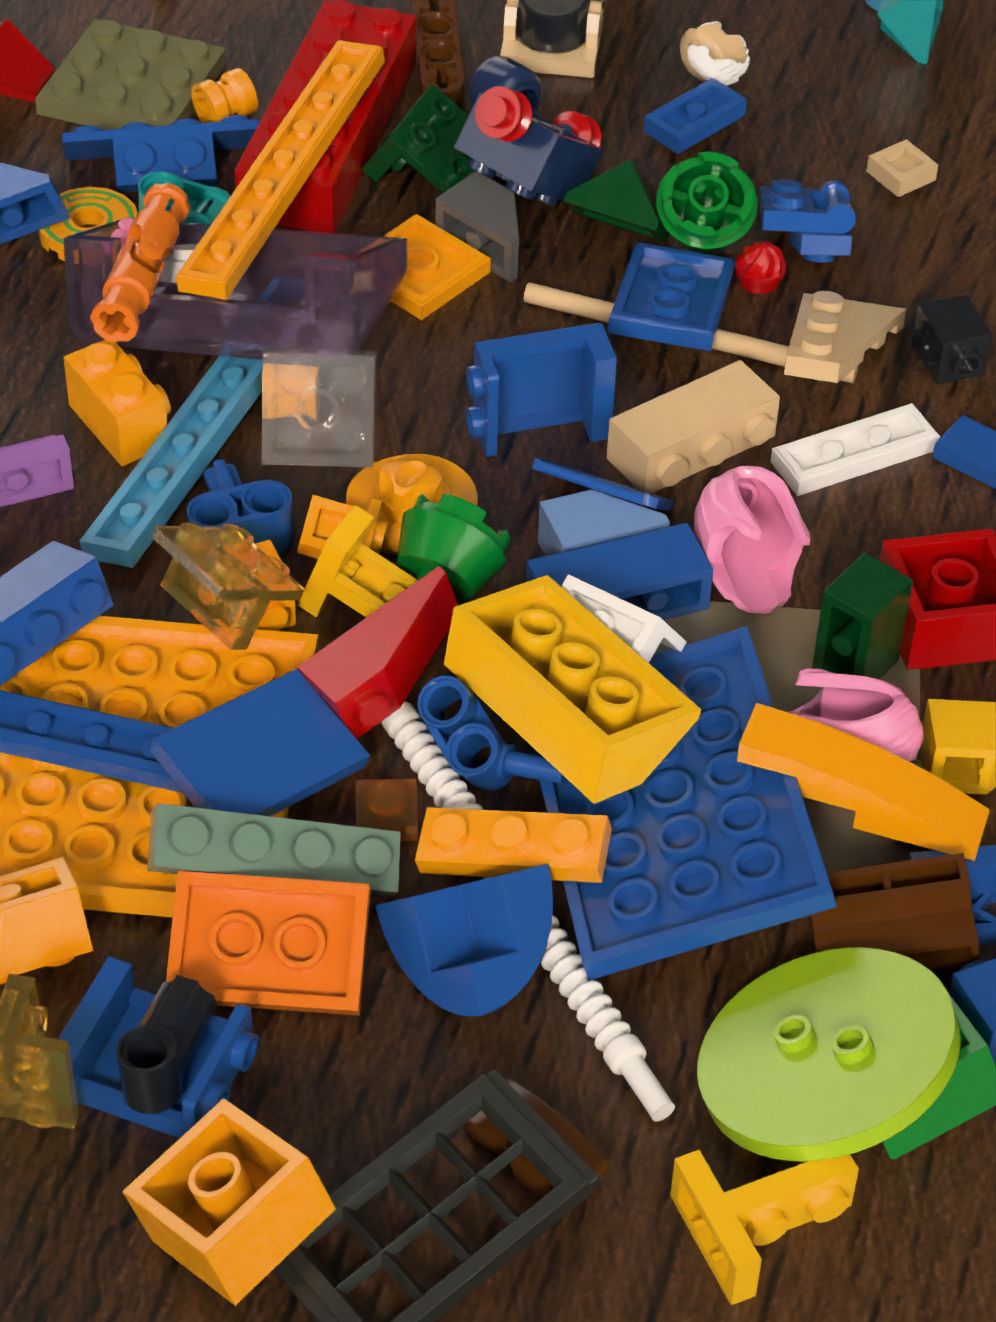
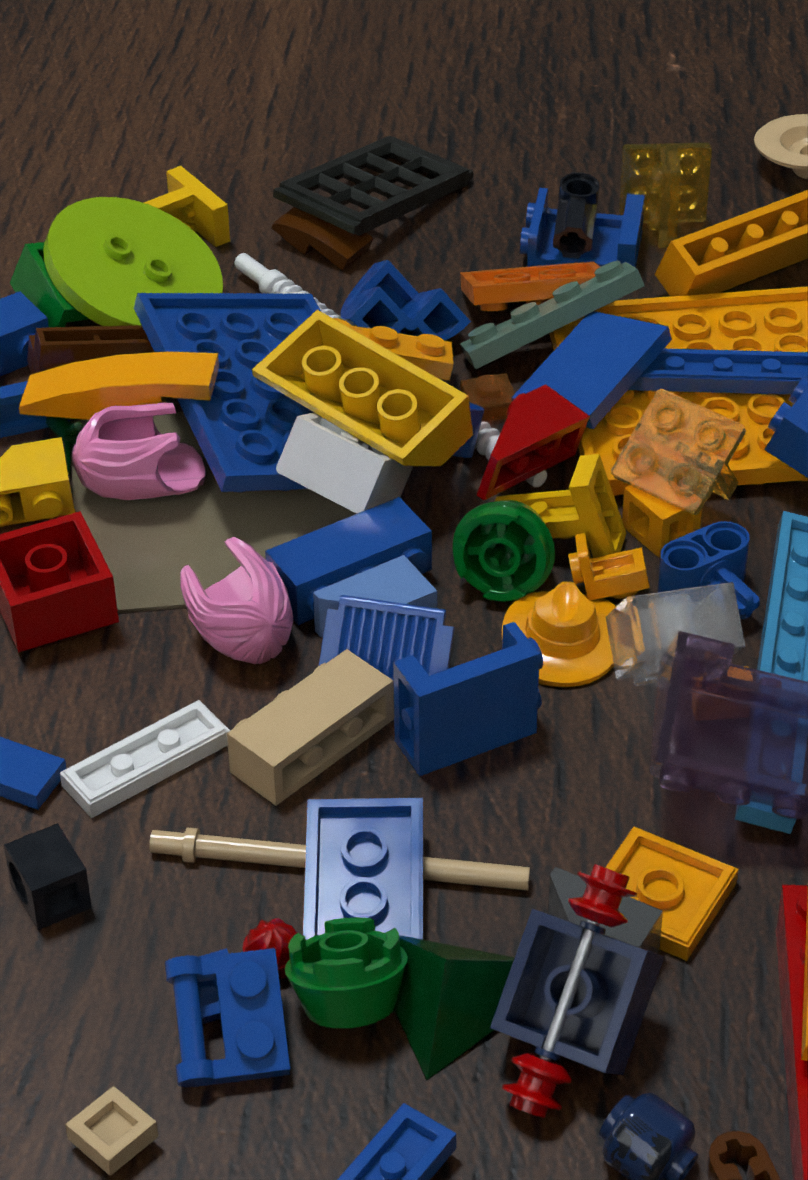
camera: 170 degrees right, 5 degrees down
(229, 1200) = (496, 151): light orange brick -> none
(426, 141) = (708, 1032): dark green bracket -> none
(836, 333) = (177, 853): tan wing -> none
(863, 620) = (129, 522): dark green brick -> none

